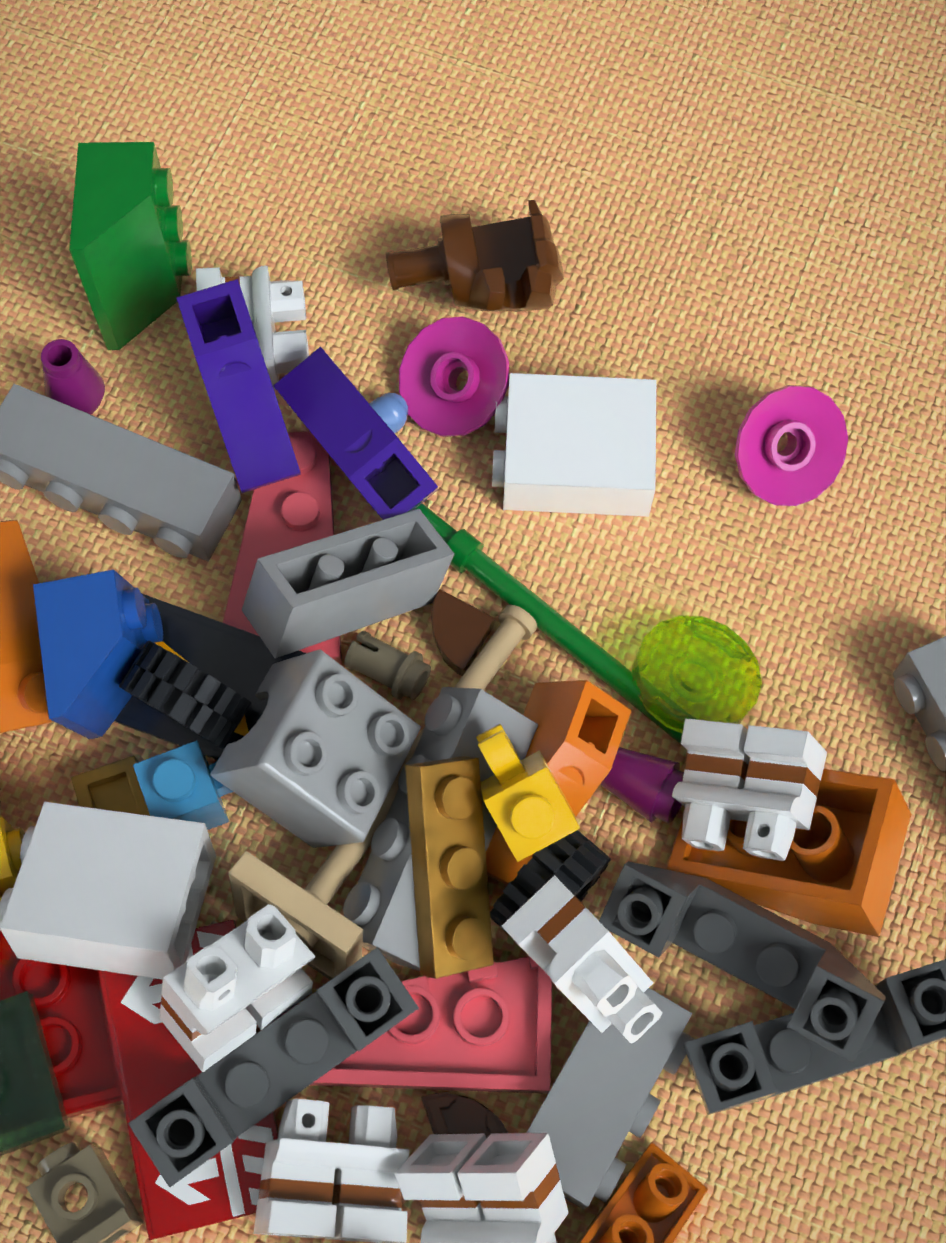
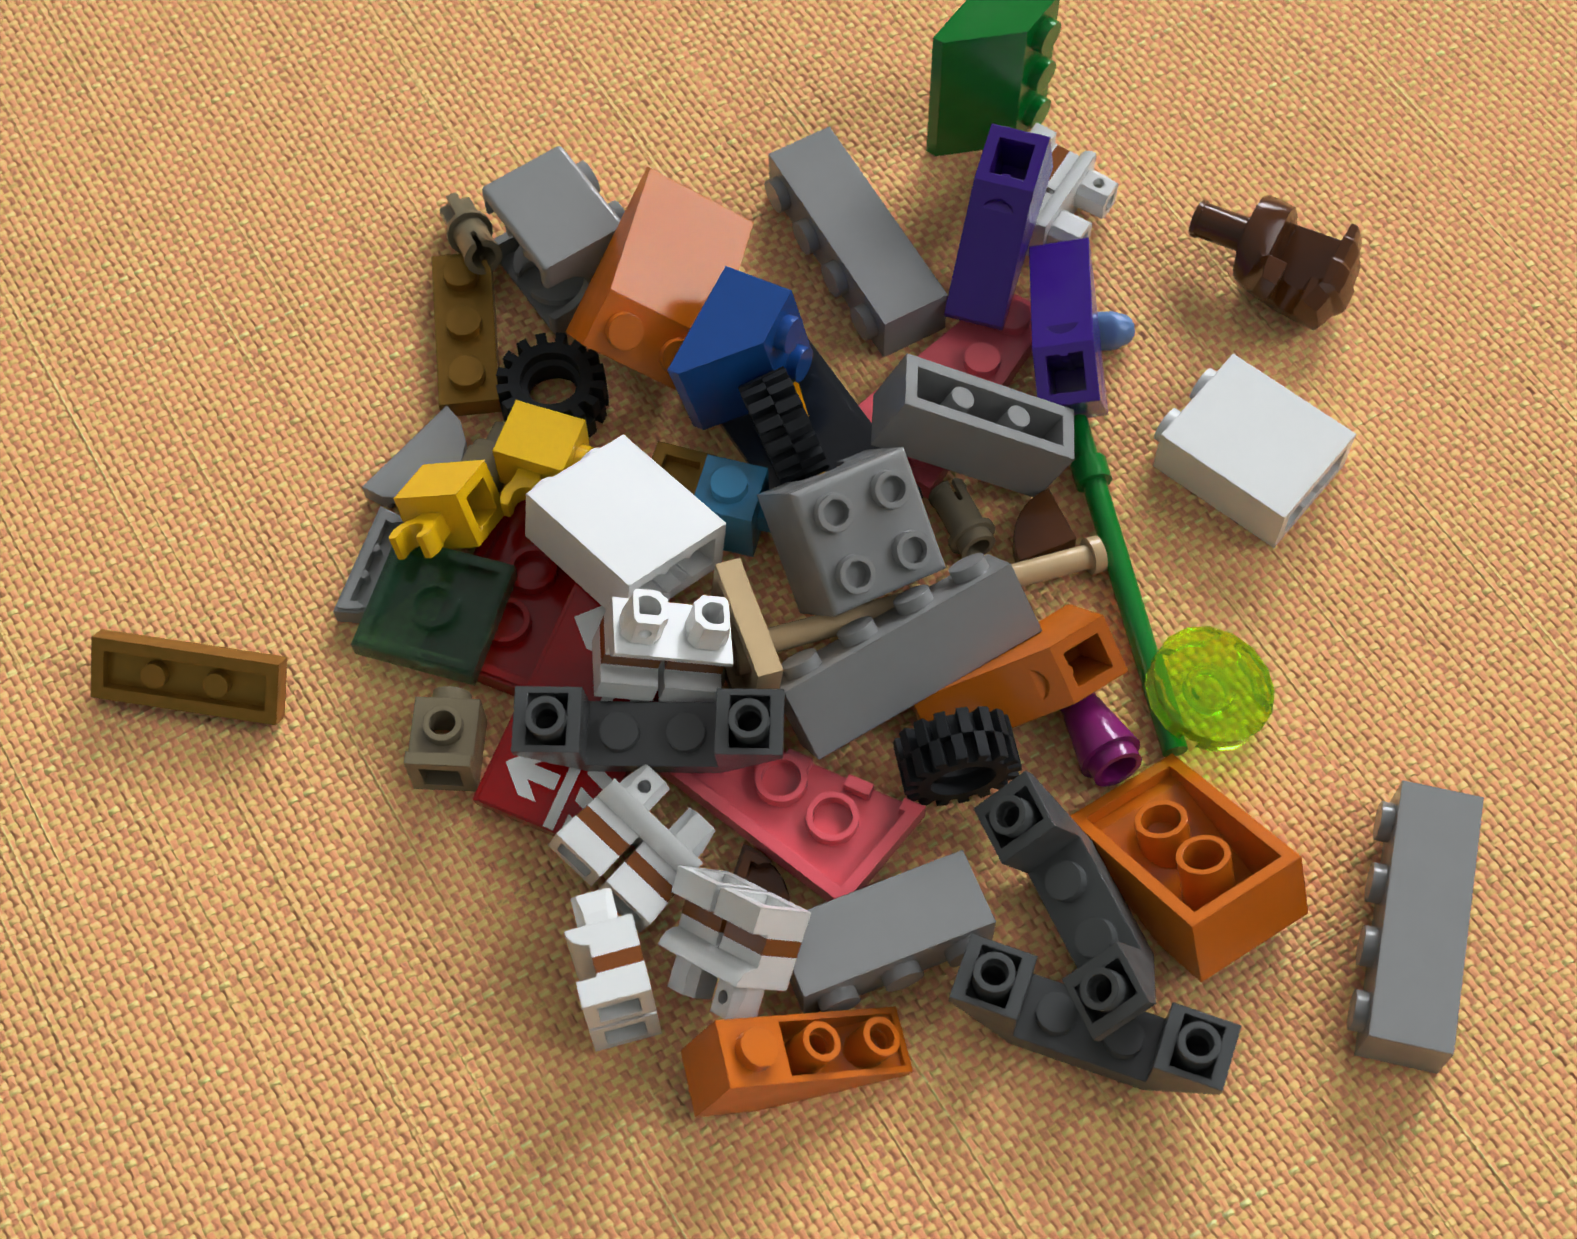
camera: 40 degrees right, 5 degrees down
(71, 377) = (878, 149): magenta cone -> none
(431, 373) = (1178, 317): dark pink dish -> none
(449, 866) = (887, 679): pearl gold plate -> none
(523, 796) = (981, 666): yellow brick -> none
(584, 960) = (934, 808): white hips -> none
(750, 777) = (1183, 779): white hips -> none
(813, 447) = (1459, 586): dark pink dish -> none

